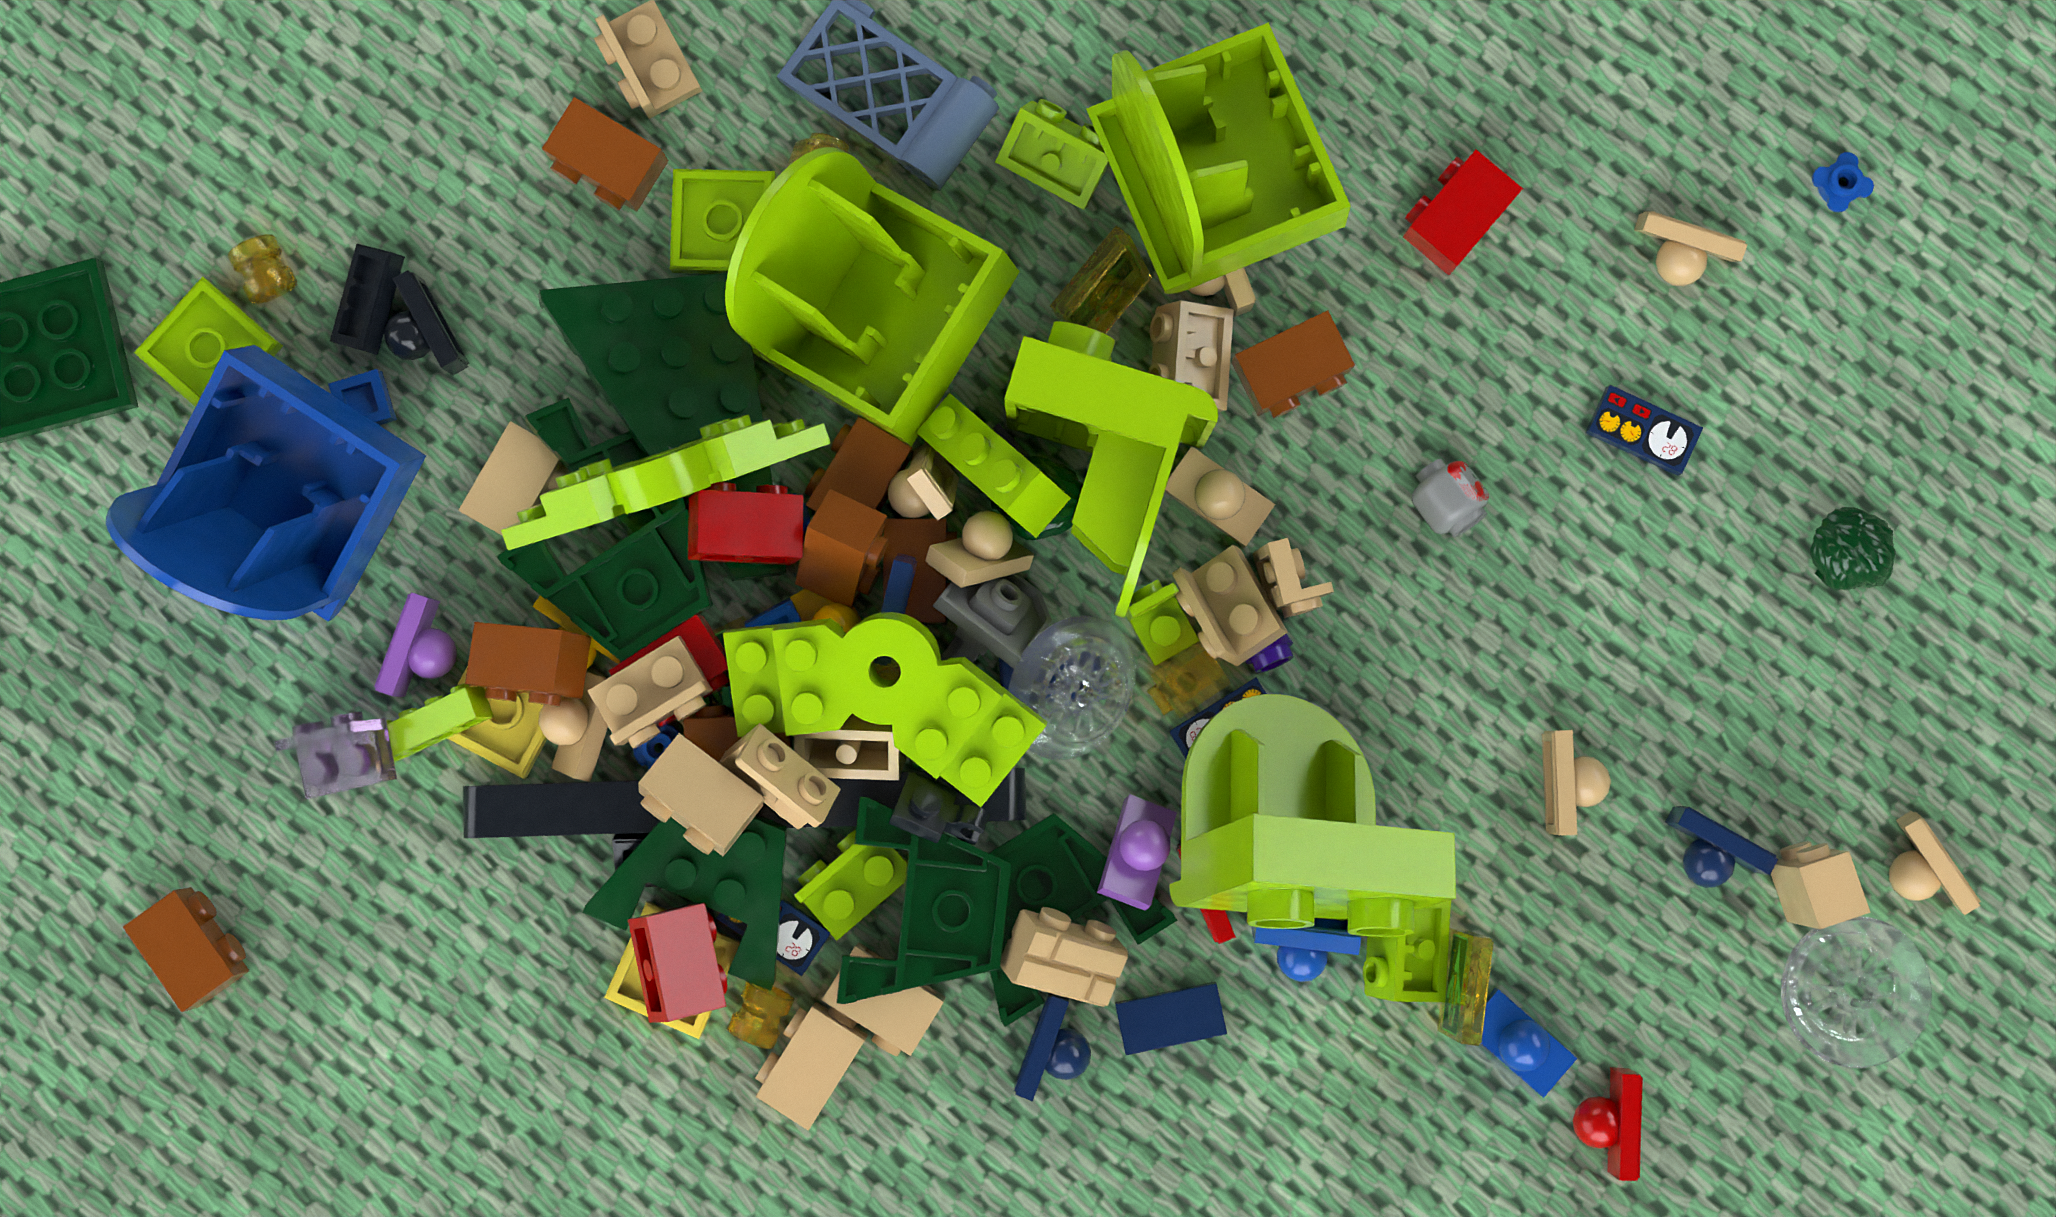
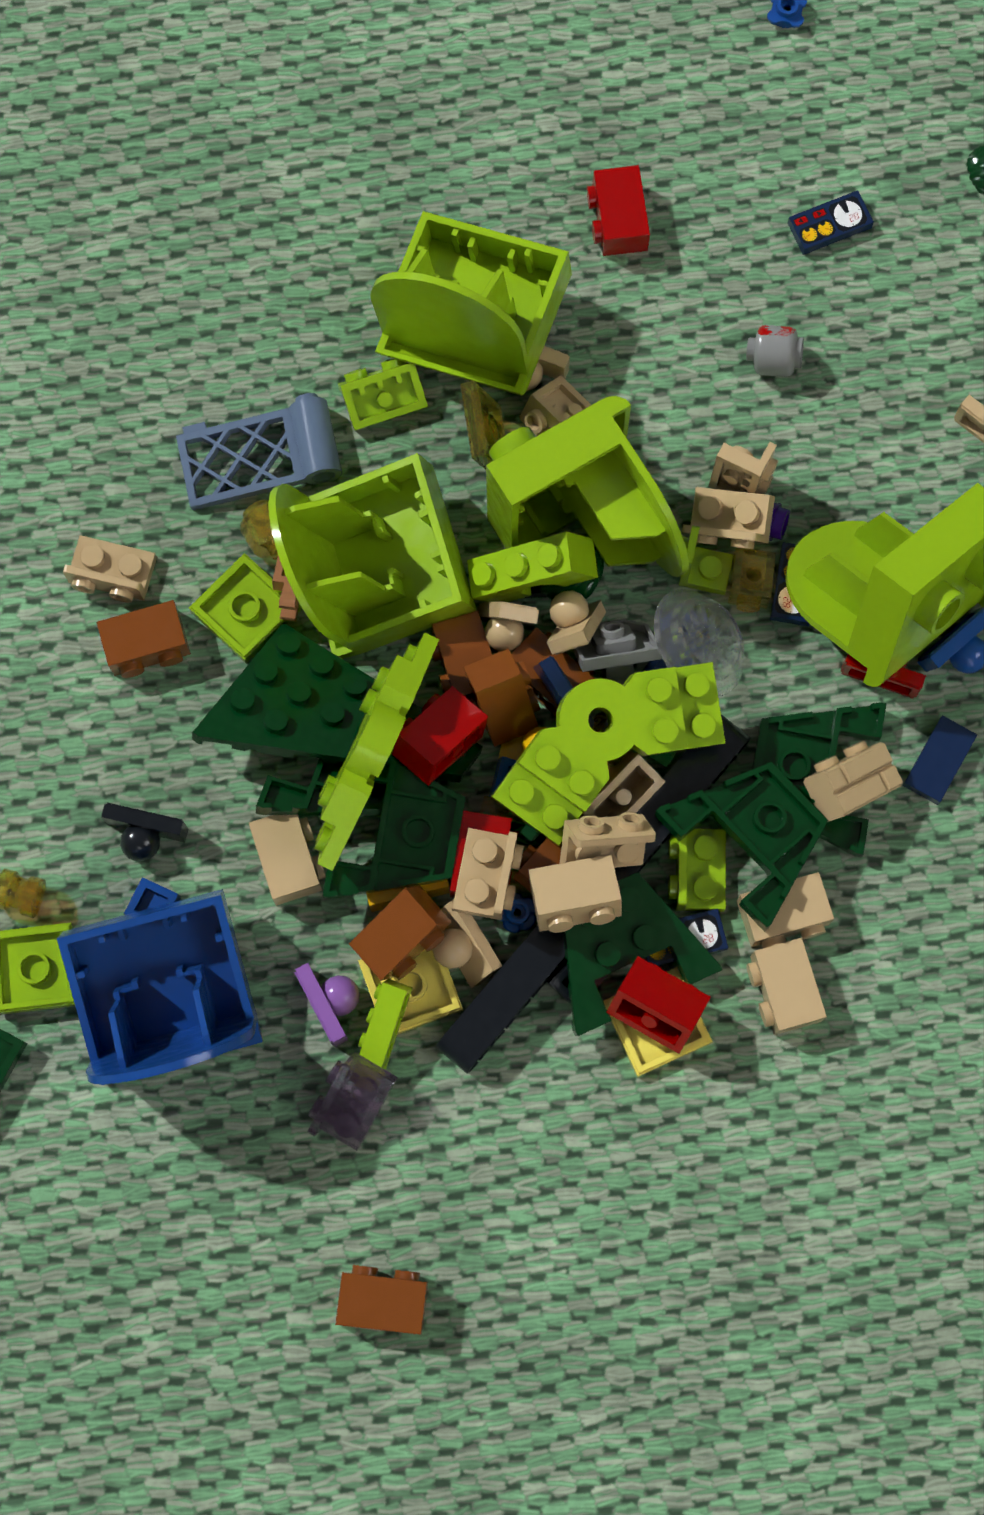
camera: 50 degrees left, 10 degrees down
(367, 299) = (95, 848): black plate -> none
(760, 1015) = (732, 999): clear yellow wheel -> none
(929, 809) = (703, 778): black plate -> none
(1058, 1051) = (898, 840): dark blue tile -> none
(1137, 852) = (826, 690): medium lavender tile -> none
(1218, 496) = (674, 471): tan tile -> none
(1294, 364) = (624, 364): dark orange brick -> none
(1686, 247) = (748, 113): tan tile -> none

